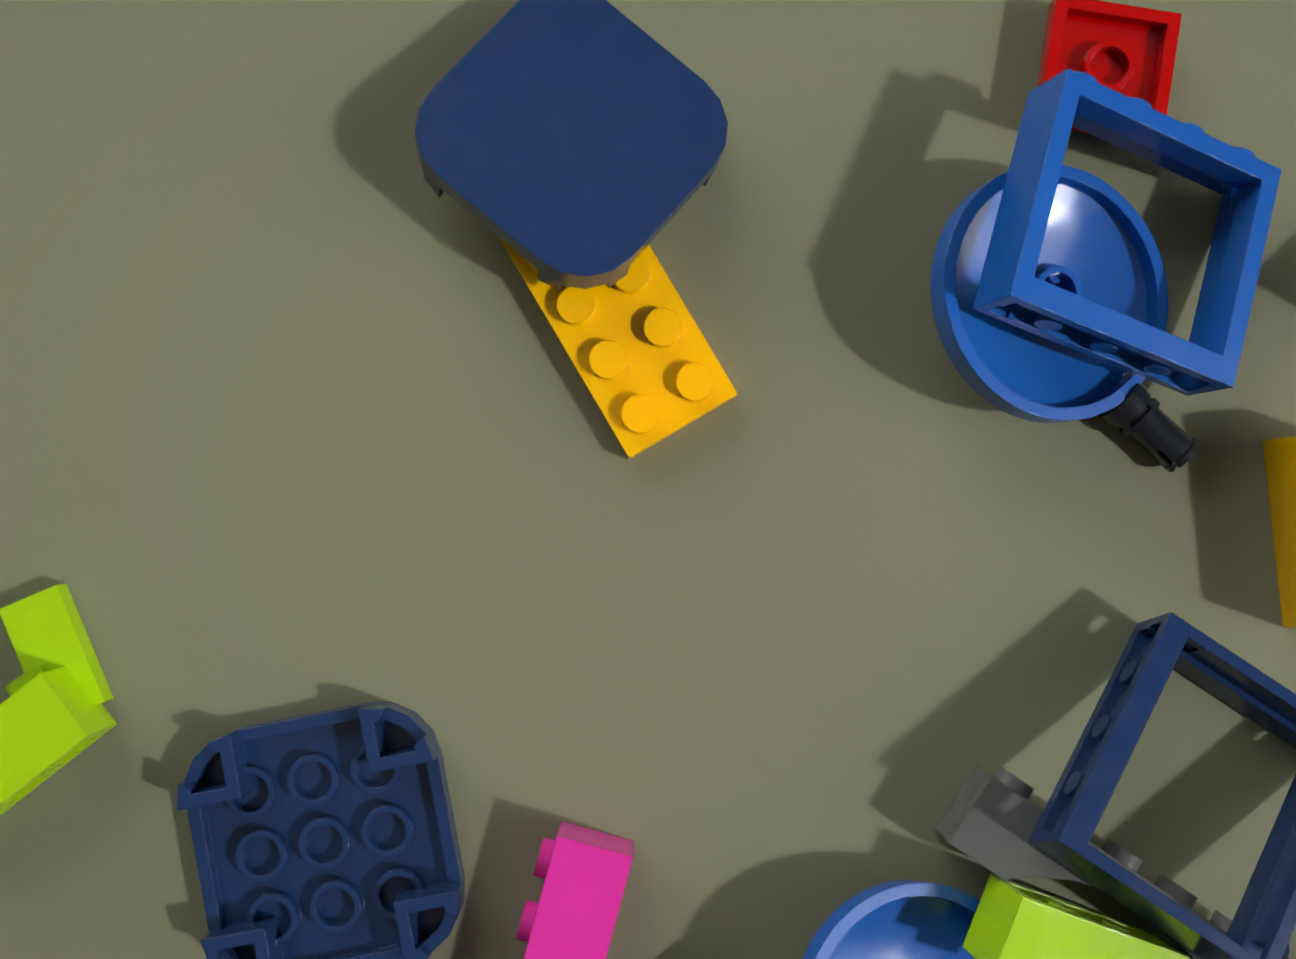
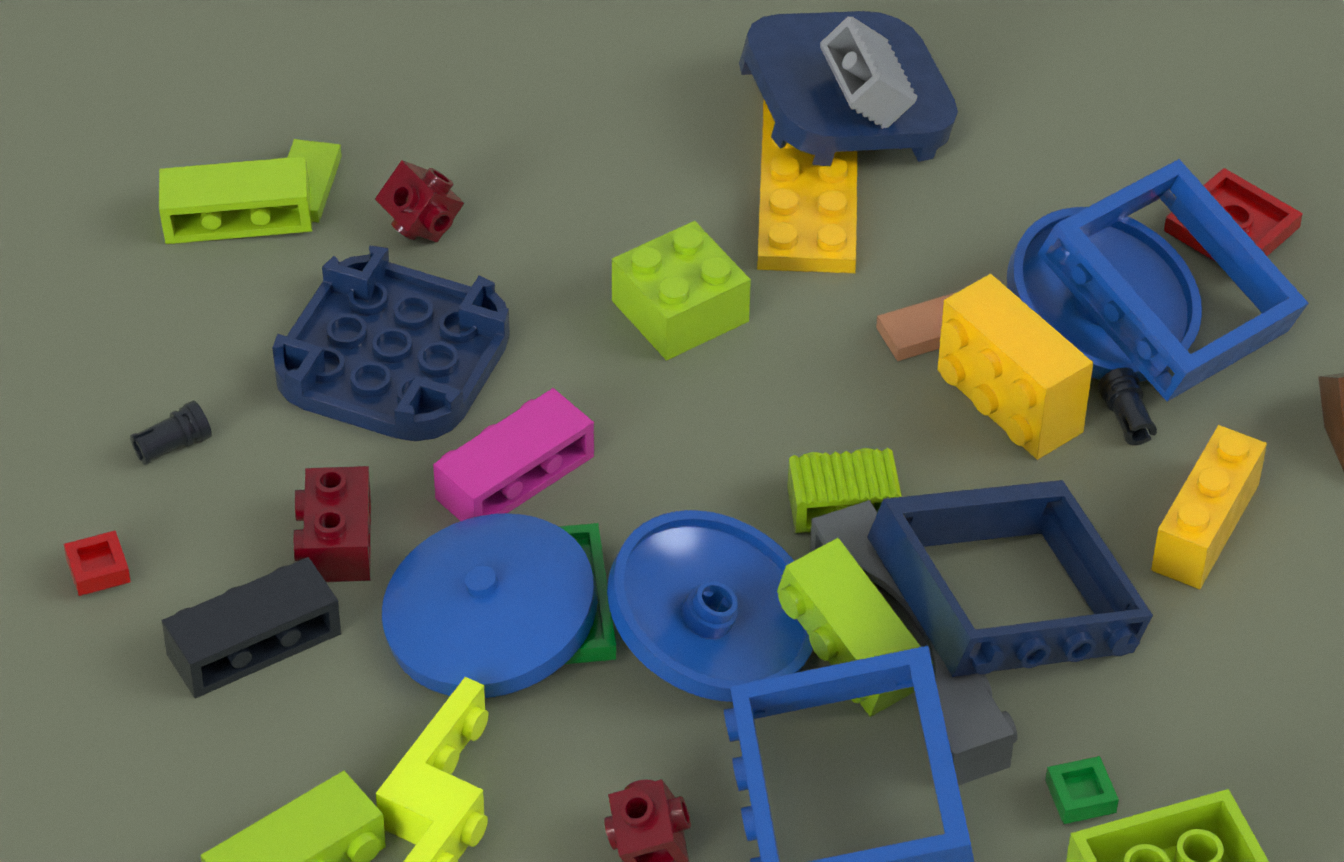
camera: 30 degrees right, 40 degrees down
(212, 634) = (419, 201): none -> dark red brick
(583, 577) = (680, 290): none -> lime brick
(613, 144) = (868, 72): none -> light grey brick
(872, 431) = (913, 328): none -> nougat tile
(936, 748) = (837, 481): none -> lime brick
(1031, 481) = (1014, 366): none -> yellow brick

